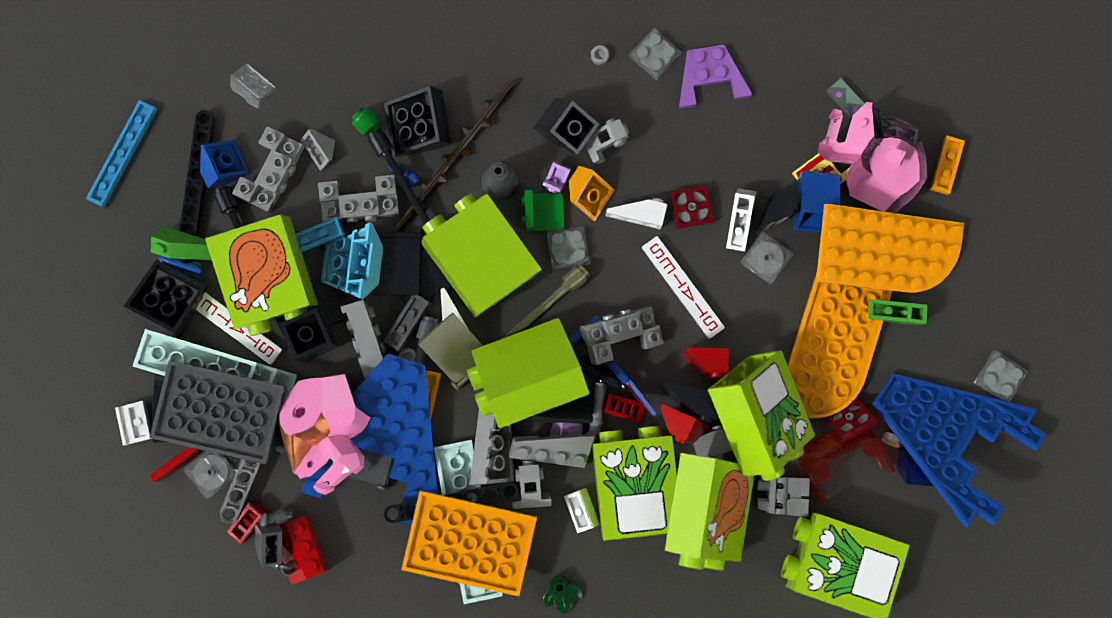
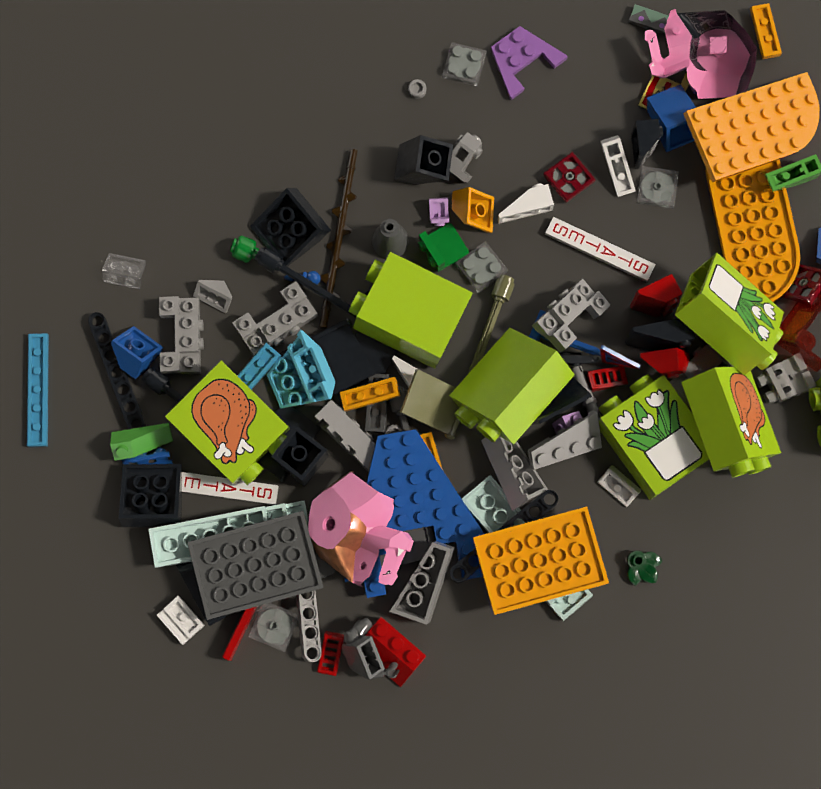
camera: 25 degrees left, 5 degrees down
(357, 509) = (424, 586): none -> light grey wedge
(403, 311) = (370, 394): none -> light orange plate
(530, 472) = (558, 473): light grey tile -> none

